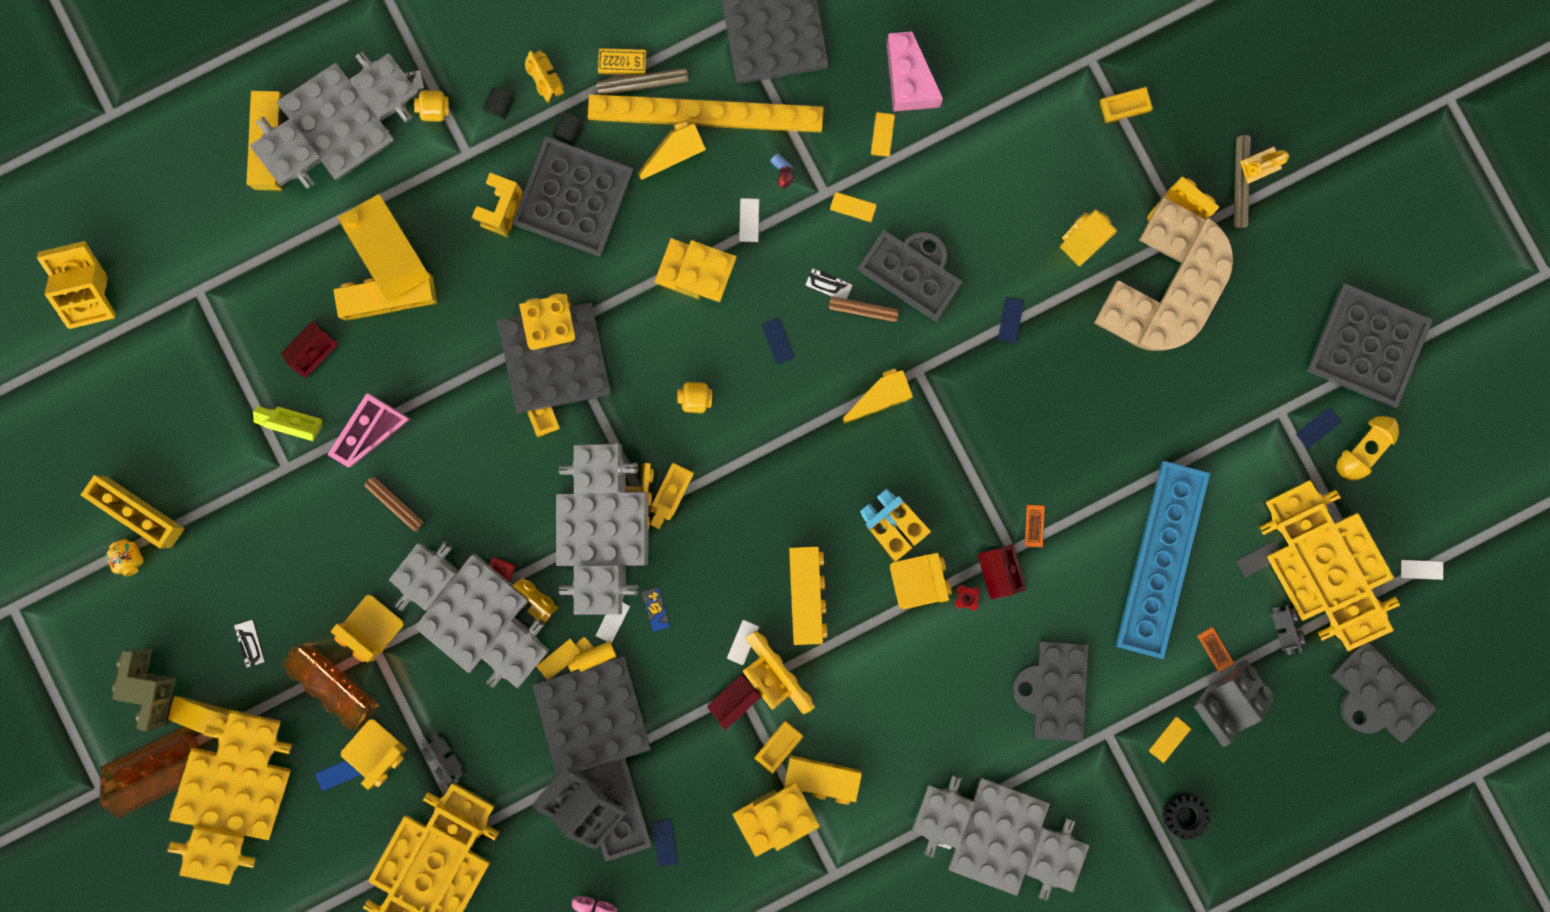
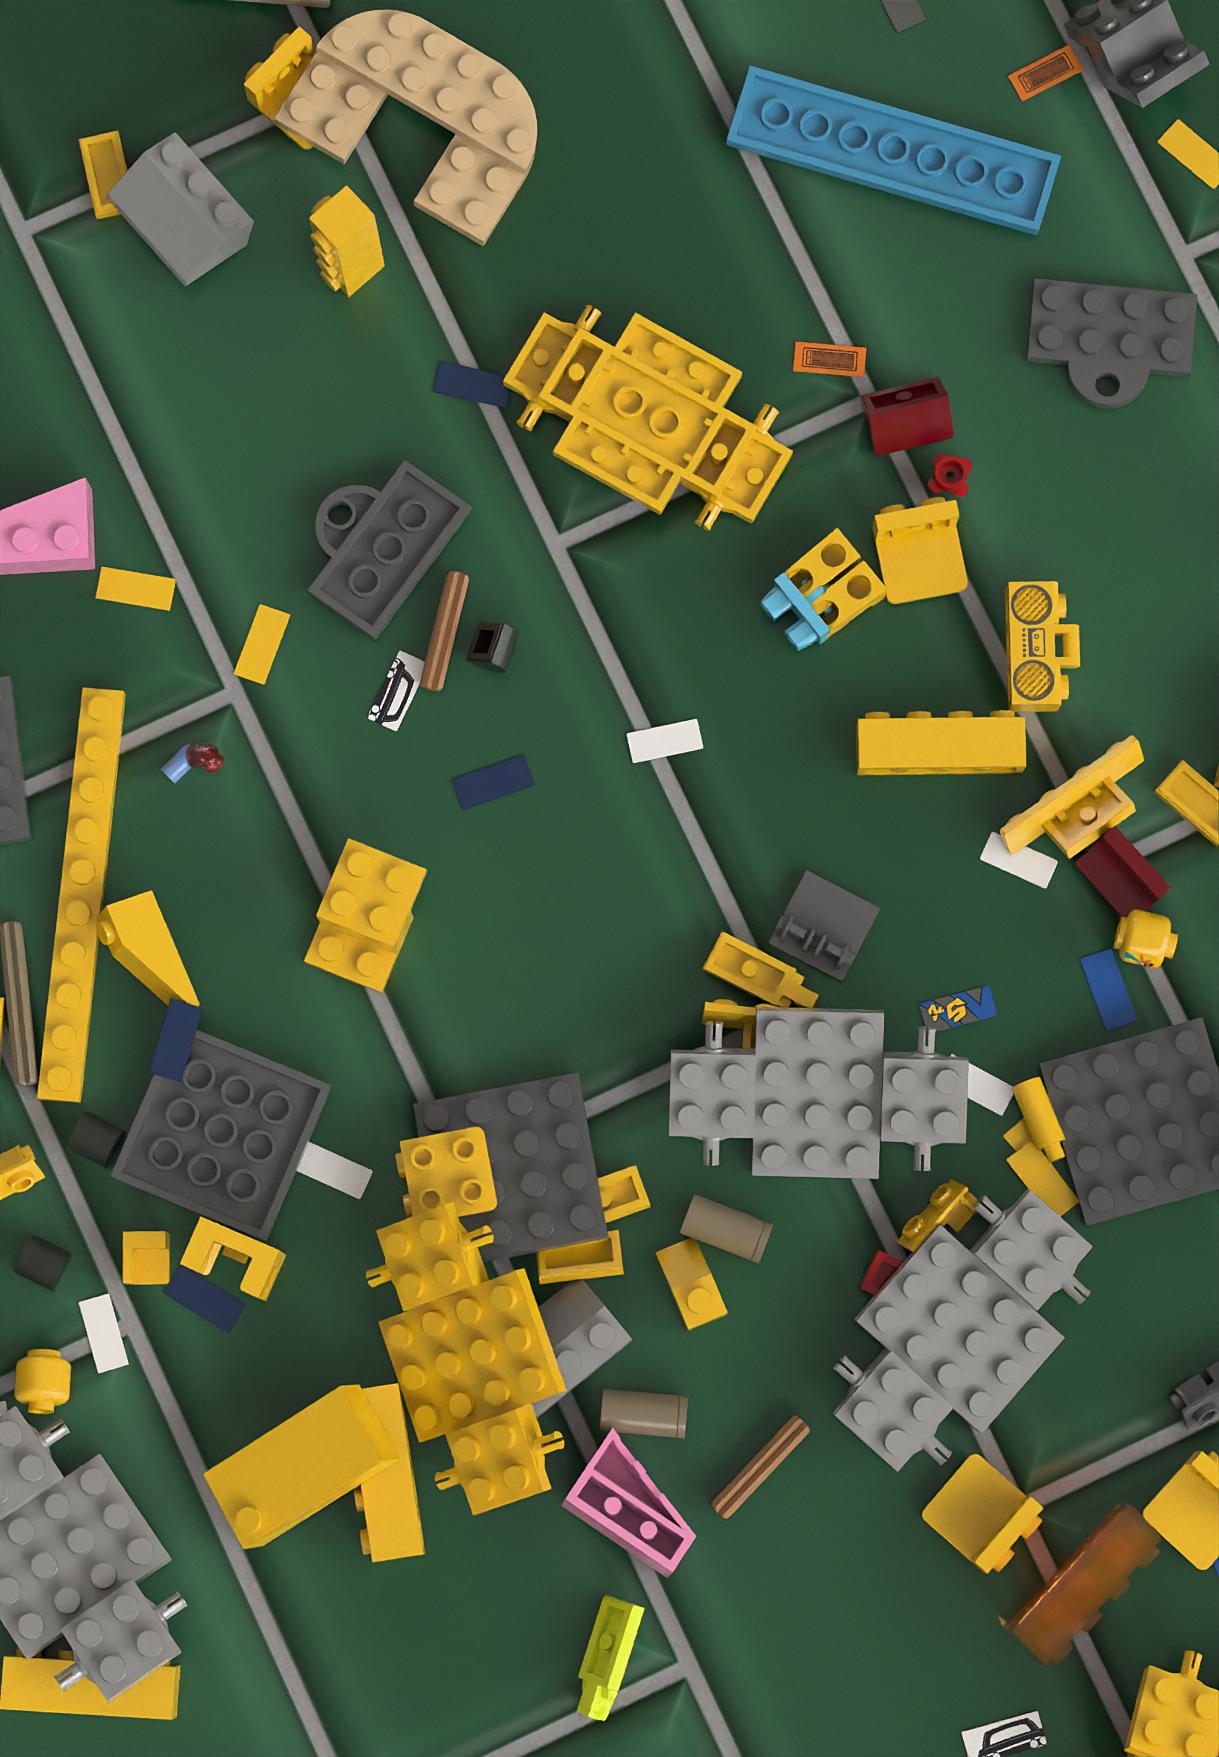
camera: 90 degrees left, 5 degrees down
(308, 349) = (475, 1618): dark red panel -> none
(421, 437) = (644, 1413): none -> dark tan pin
(444, 338) = (469, 1357): none -> yellow piece
(456, 387) = (580, 1334): none -> light grey slope
(461, 139) = (103, 1333): none -> white sticker
(480, 194) = (204, 1298): none -> dark blue sticker
(493, 461) = (691, 1283): none -> yellow slope
(502, 158) = (146, 1257): none -> yellow panel
(505, 401) = (581, 1261): none -> yellow tile
(525, 480) = (726, 1228): none -> dark tan pin
(554, 261) = (334, 1170): none -> white sticker
(621, 167) = (175, 1040): none -> dark blue sticker
(669, 695) = (1108, 989): none -> blue sticker
(695, 397) = (589, 925): yellow head -> none
(696, 716) = (1145, 939): none -> yellow head
(700, 531) = (824, 925): none -> dark grey hinge
(749, 220) = (276, 825): white sticker -> none
(805, 437) = (664, 740): none -> white sticker
(855, 336) = (492, 646): none -> pearl dark grey brick
(857, 647) = (1031, 629): none -> yellow piece
(885, 393) = (595, 602): yellow slope -> none
(994, 420) = (648, 415): none -> yellow piece
(1105, 145) = (181, 210): none -> light grey slope

